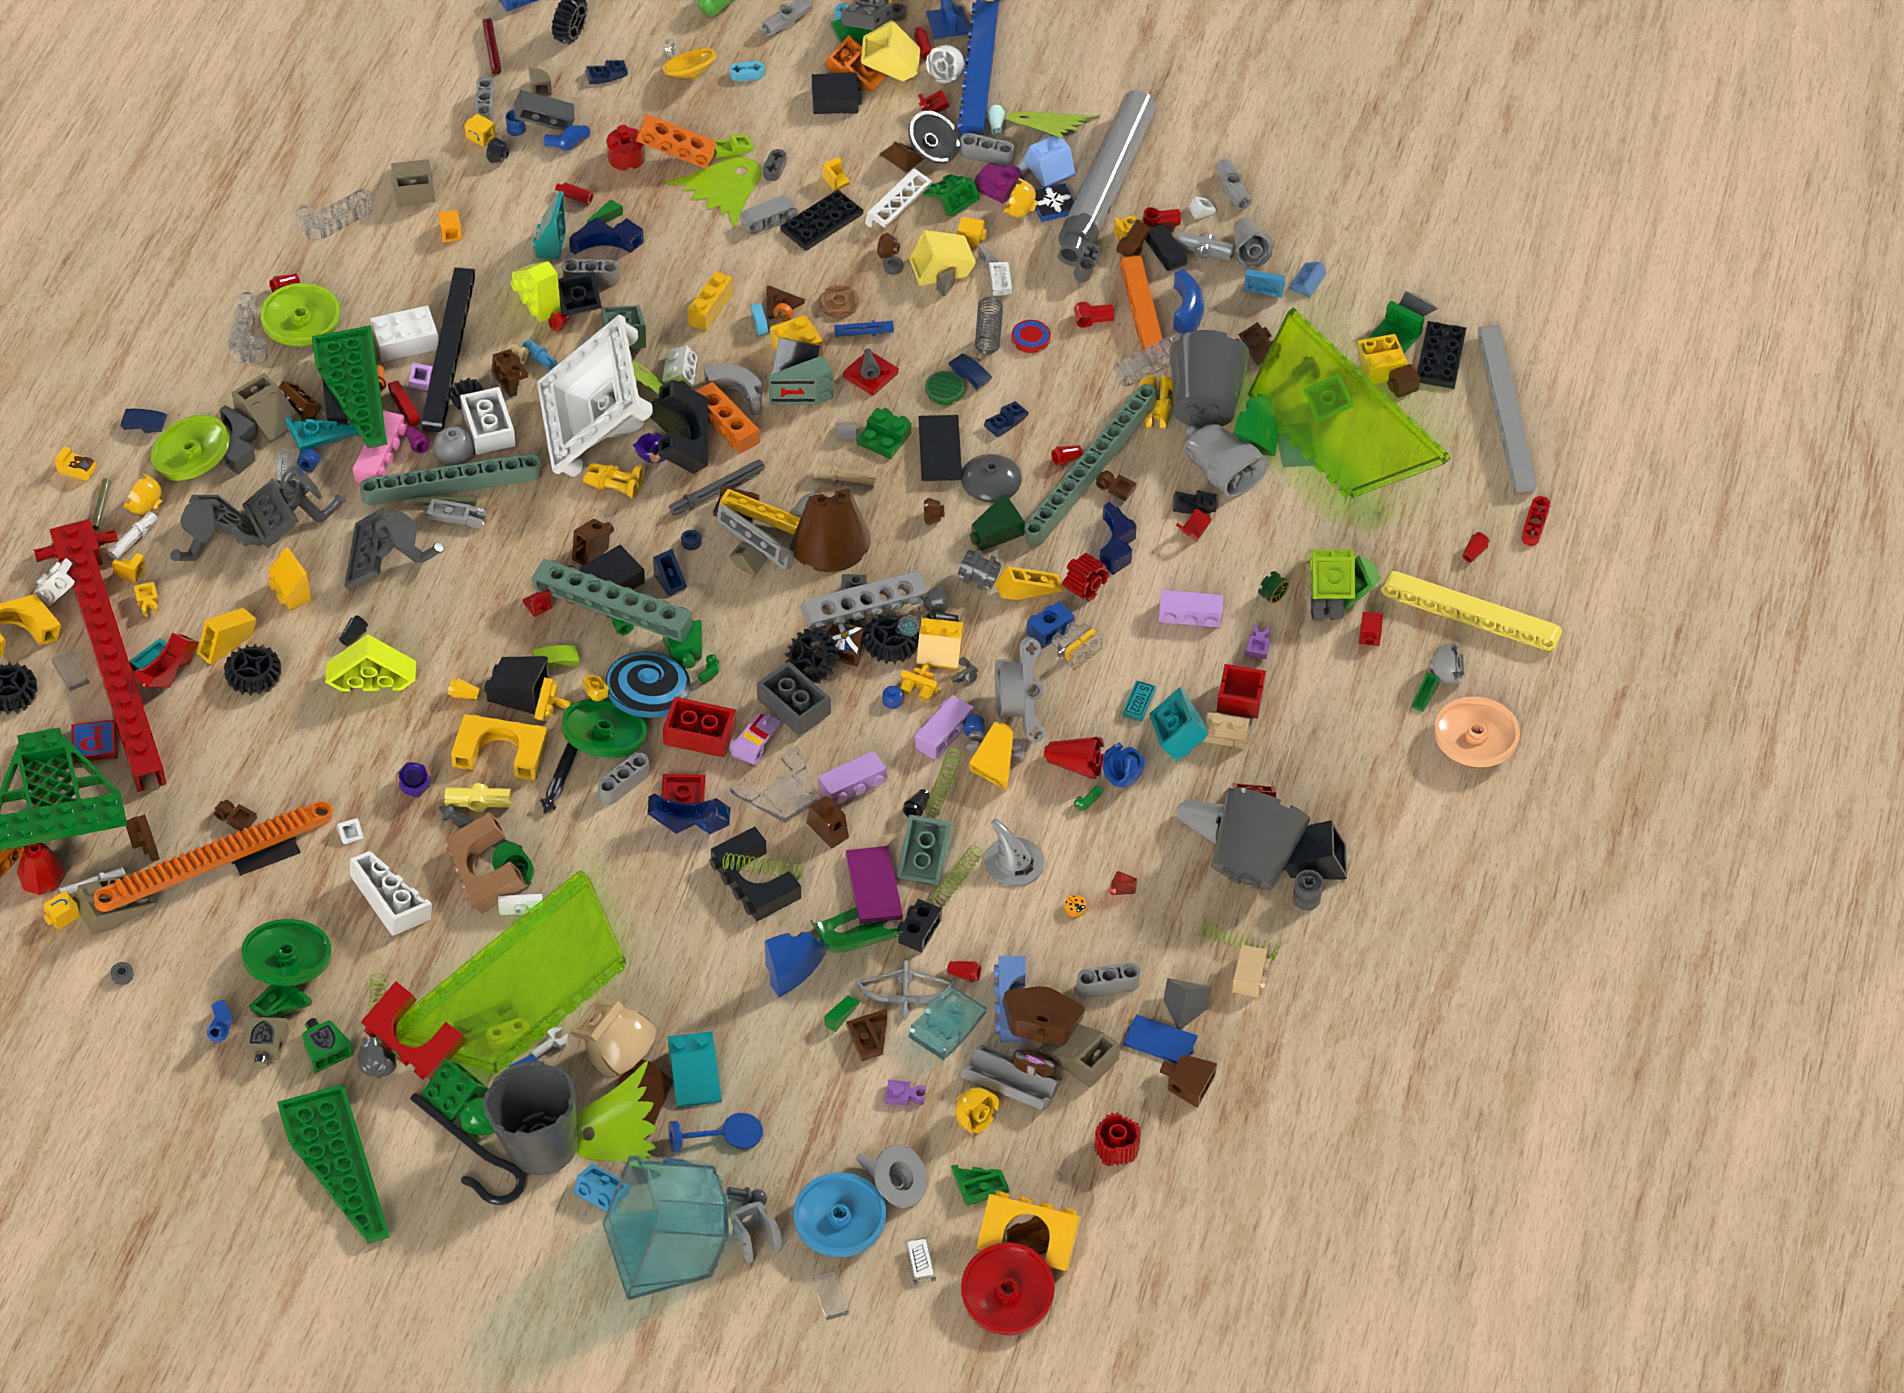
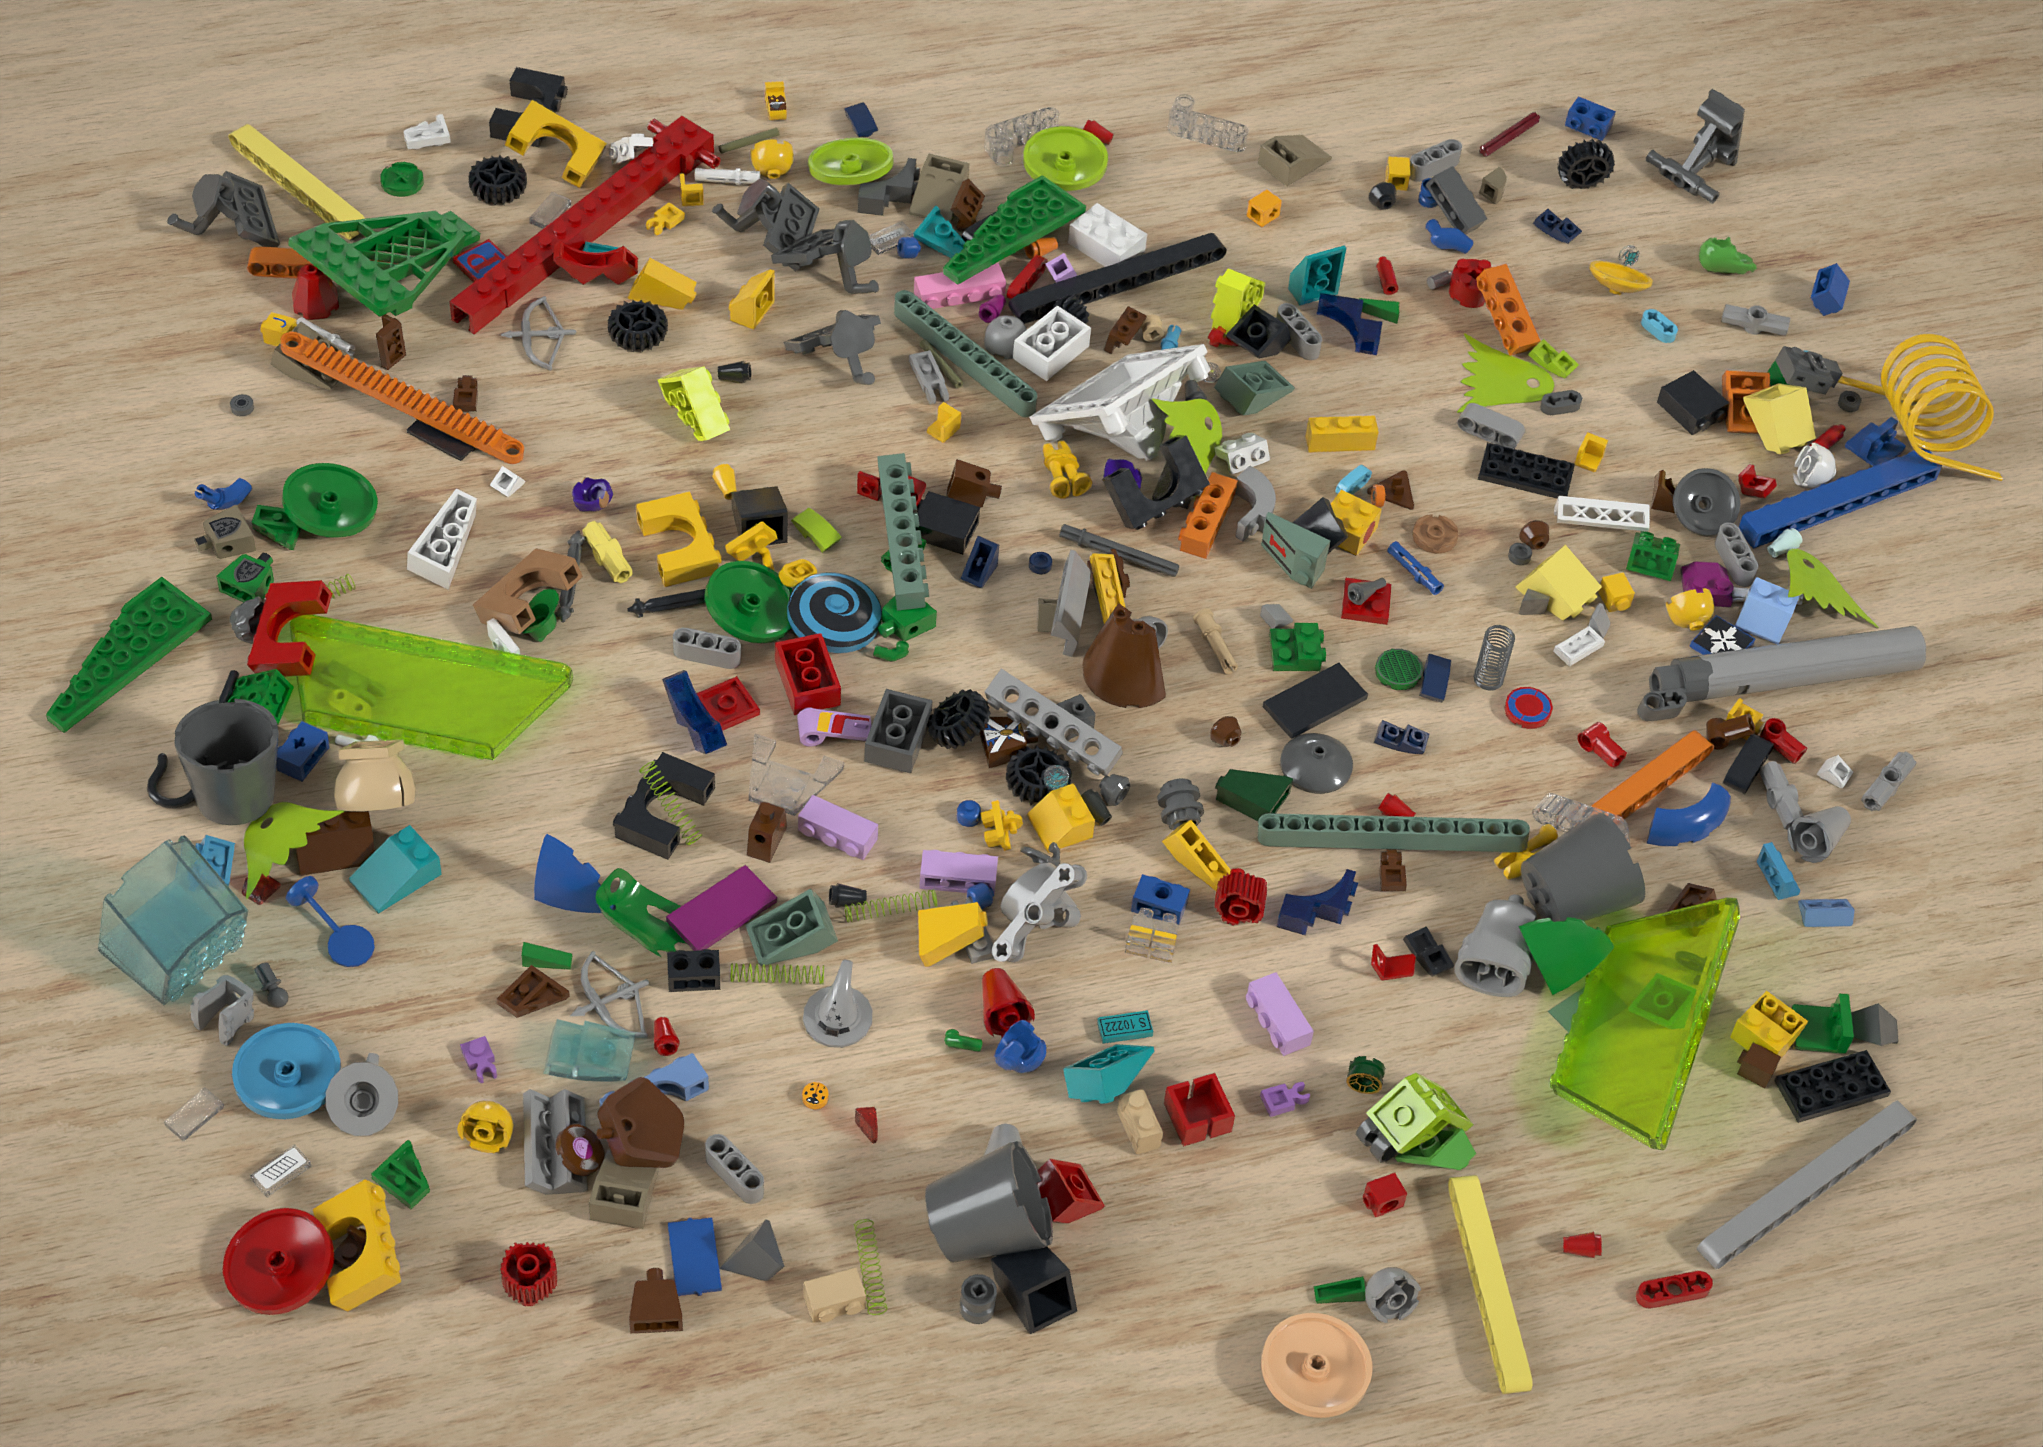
camera: 55 degrees right, 0 degrees up
(209, 729) = (552, 333): none -> light grey piece
(511, 527) = (947, 423): none -> yellow panel
(603, 162) = (1439, 279): none -> light grey axle

